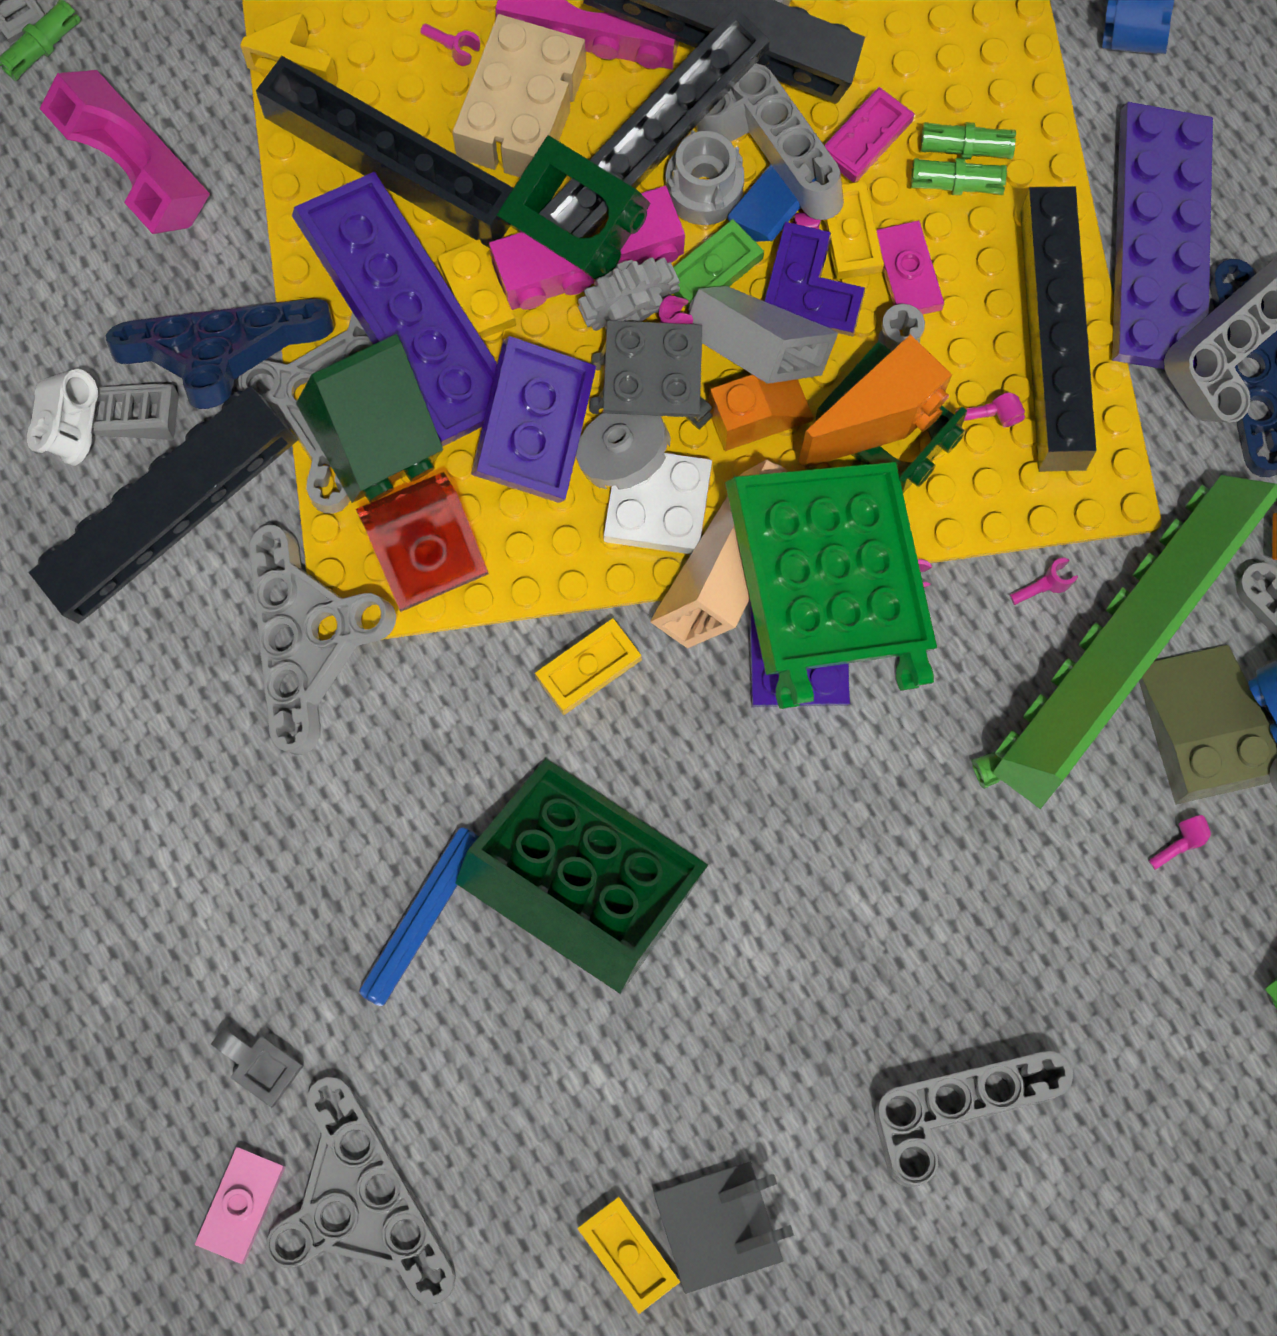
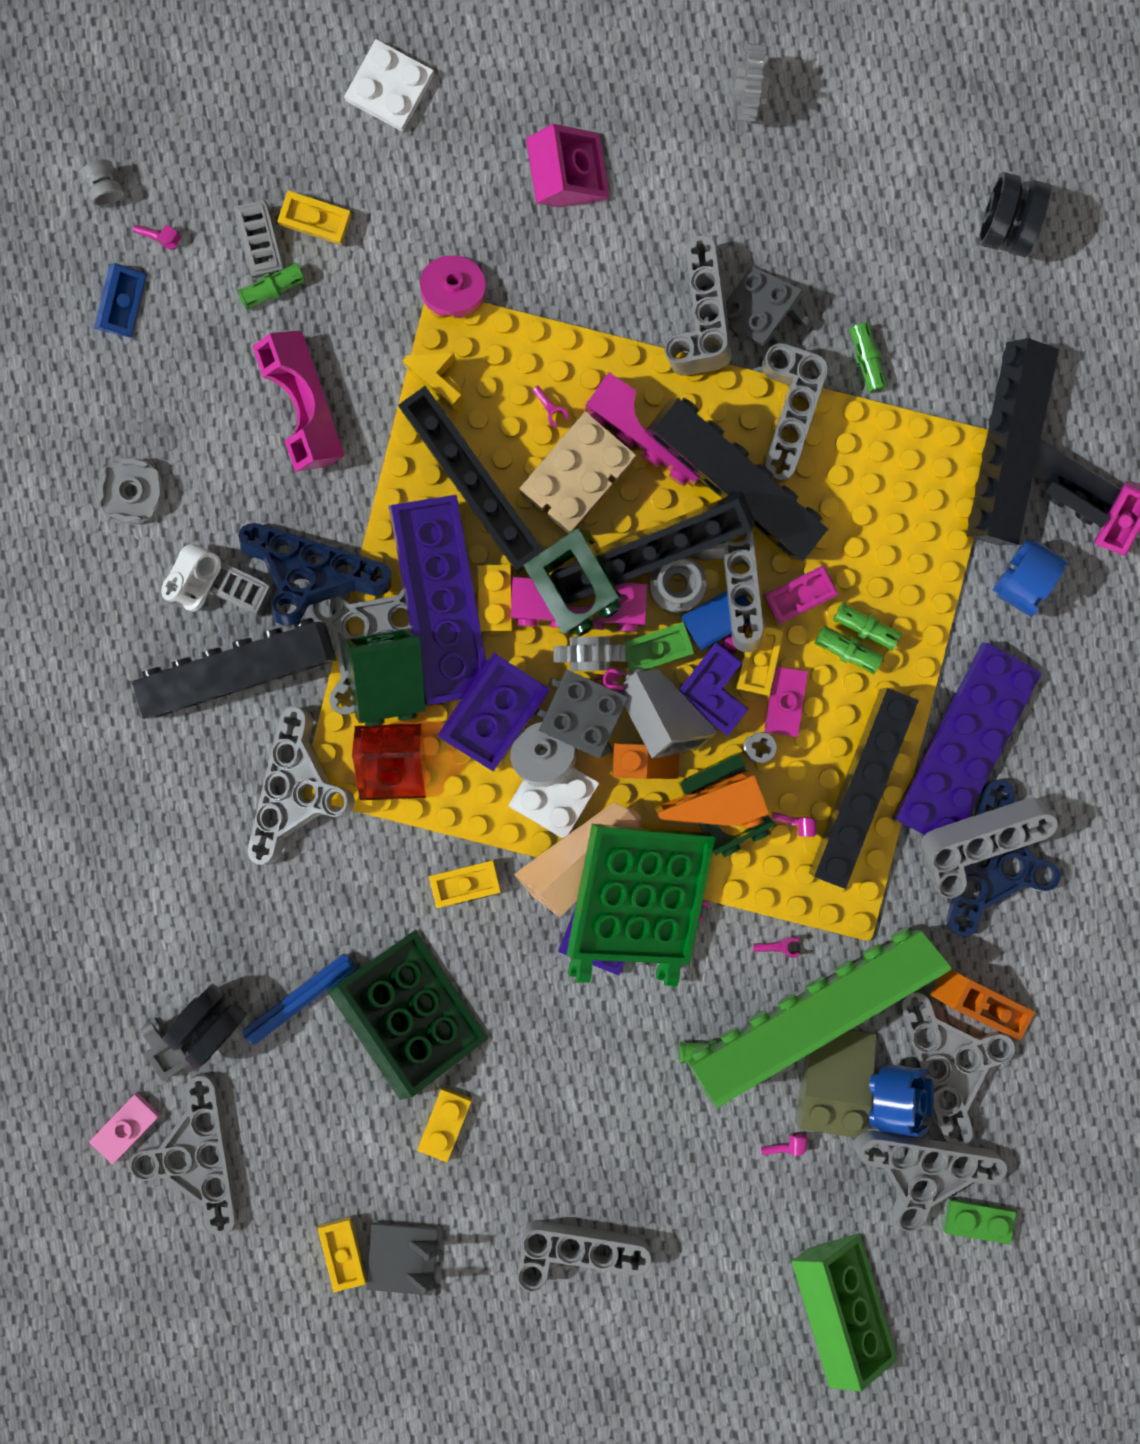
camera: 20 degrees right, 15 degrees up
(302, 994) = (202, 1024): none -> black wheel
(697, 1009) = (444, 1124): none -> yellow plate

